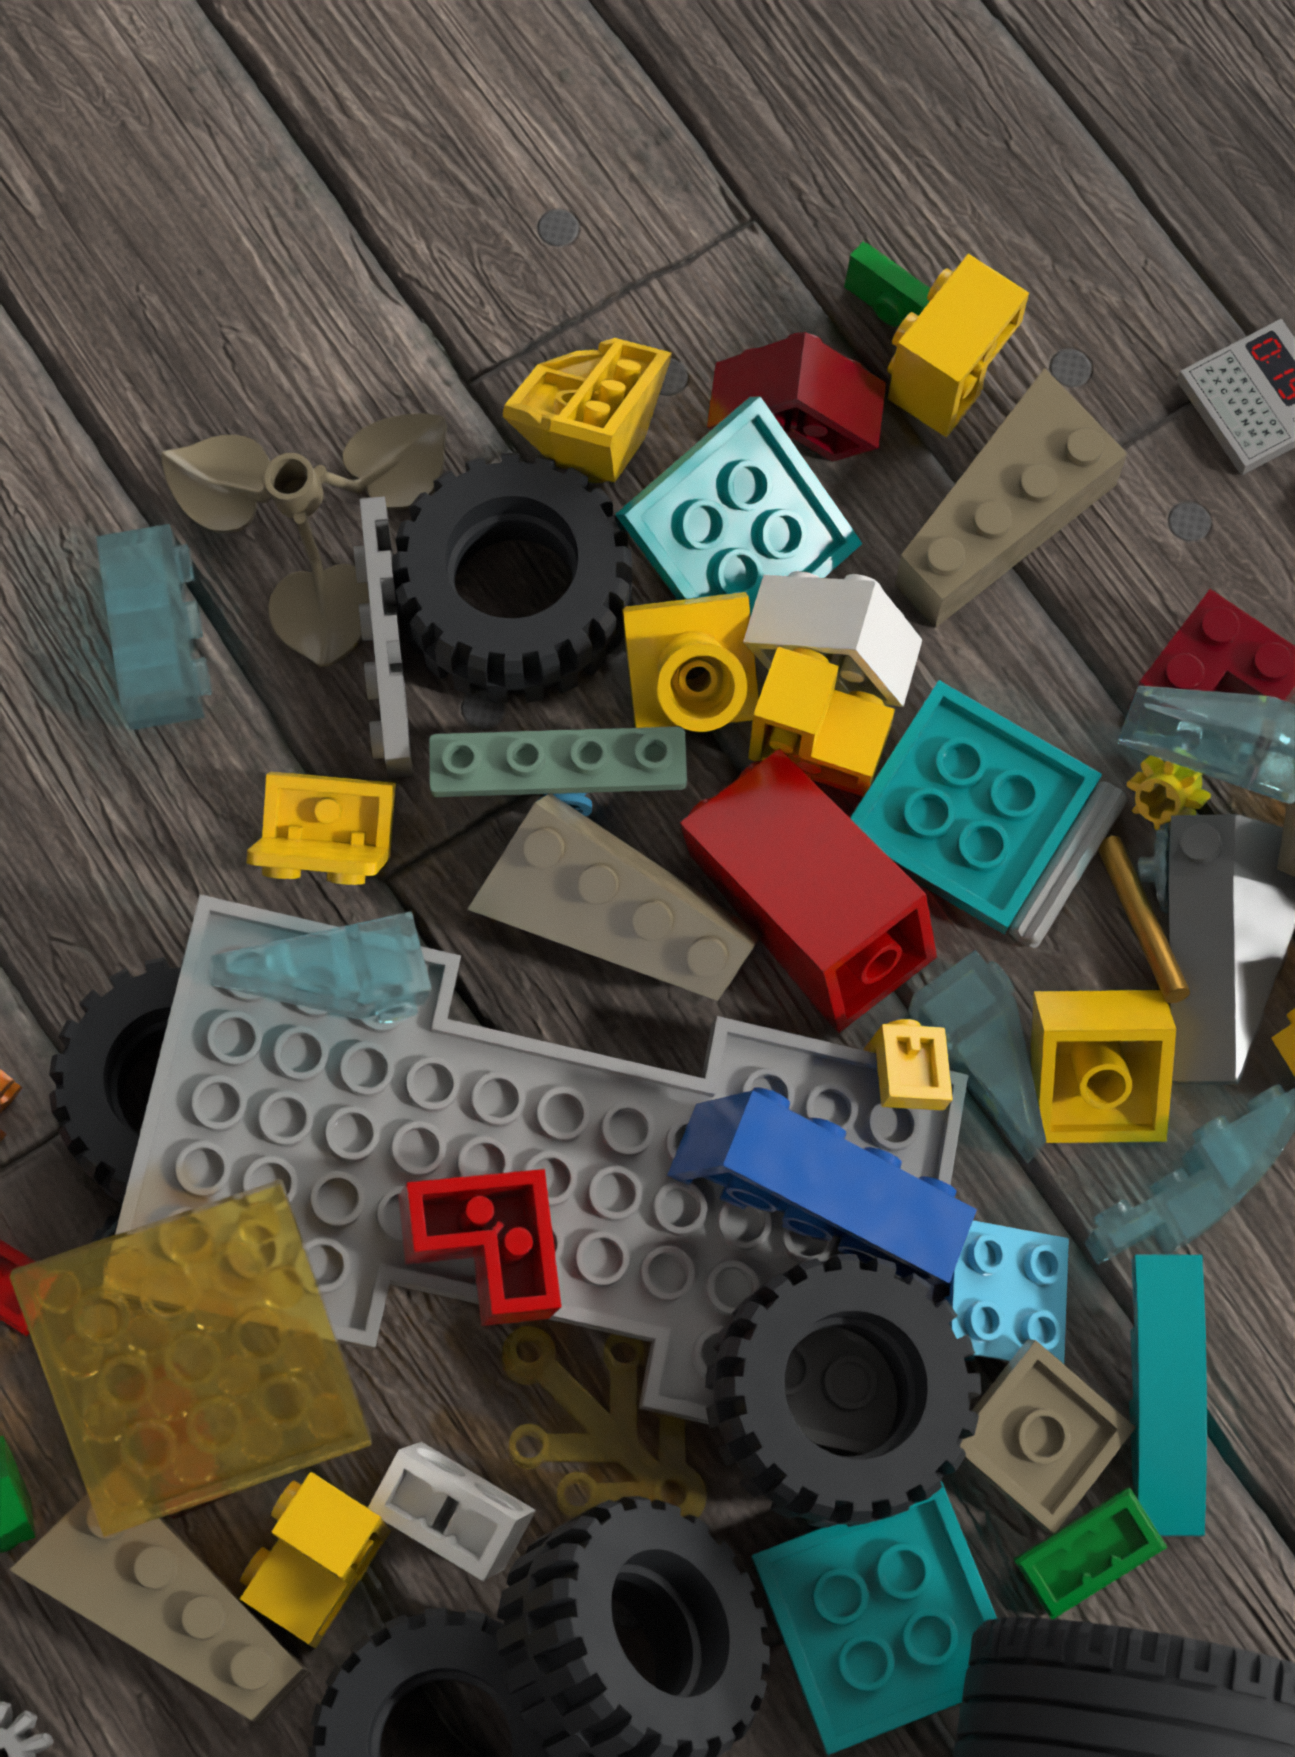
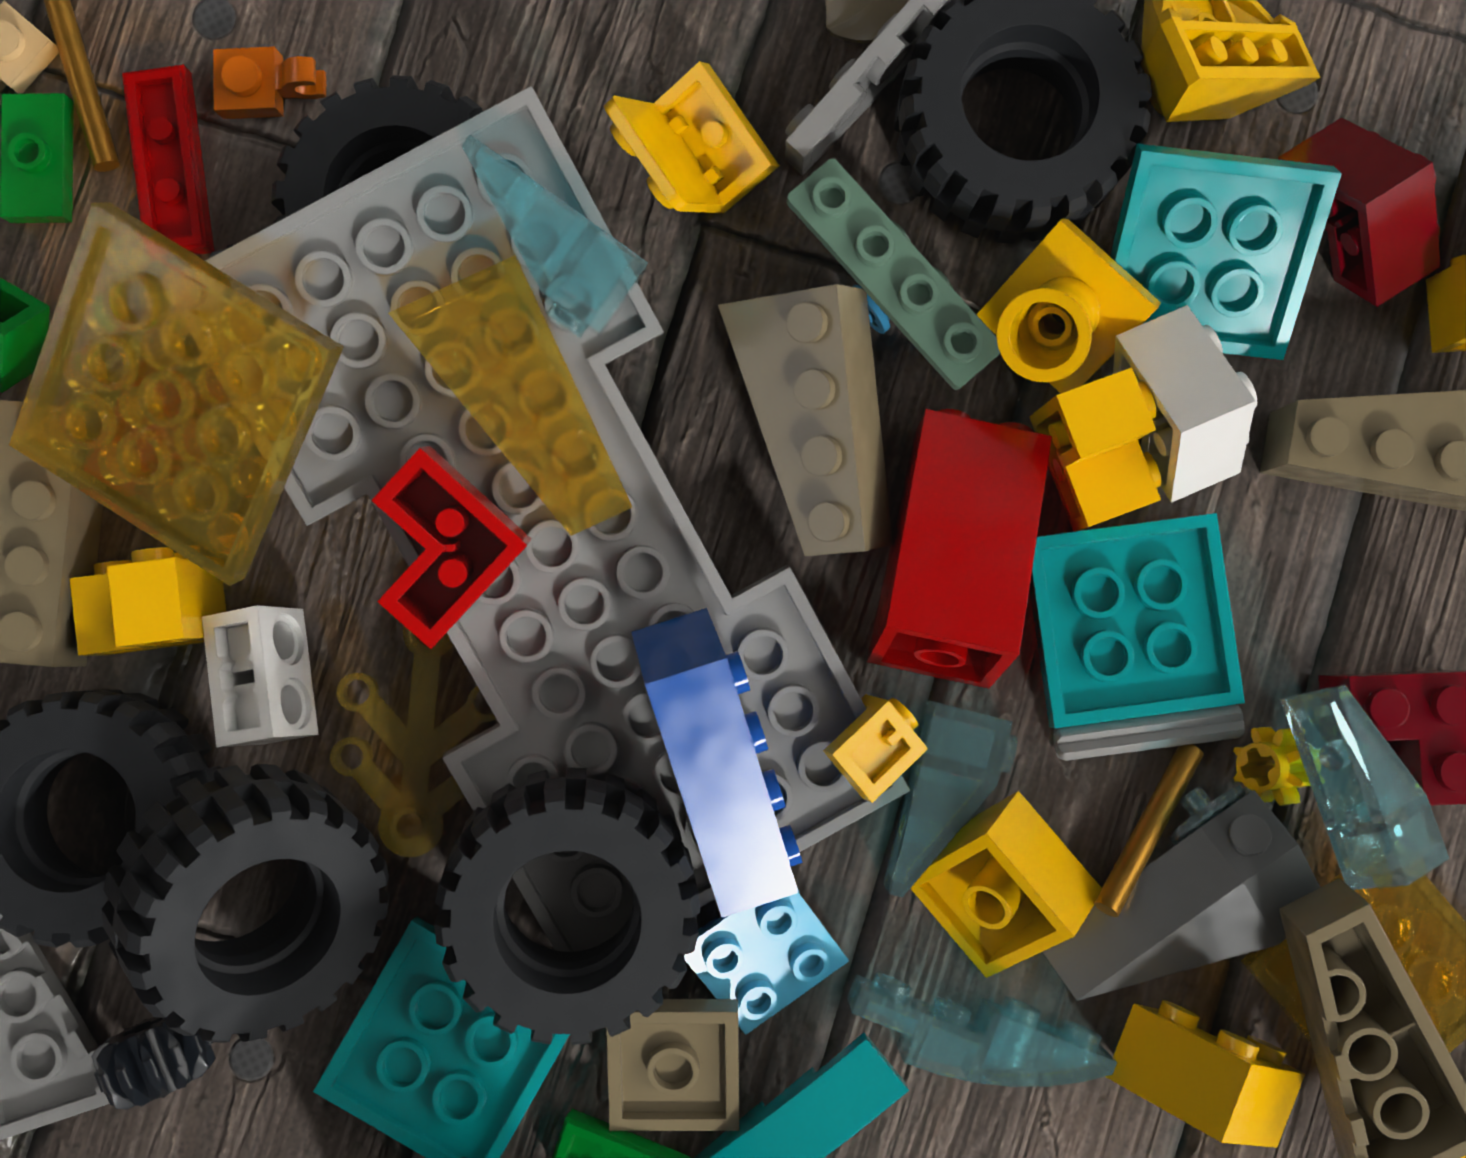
camera: 50 degrees right, 15 degrees up
(396, 1089) = (511, 377): none -> clear yellow wing

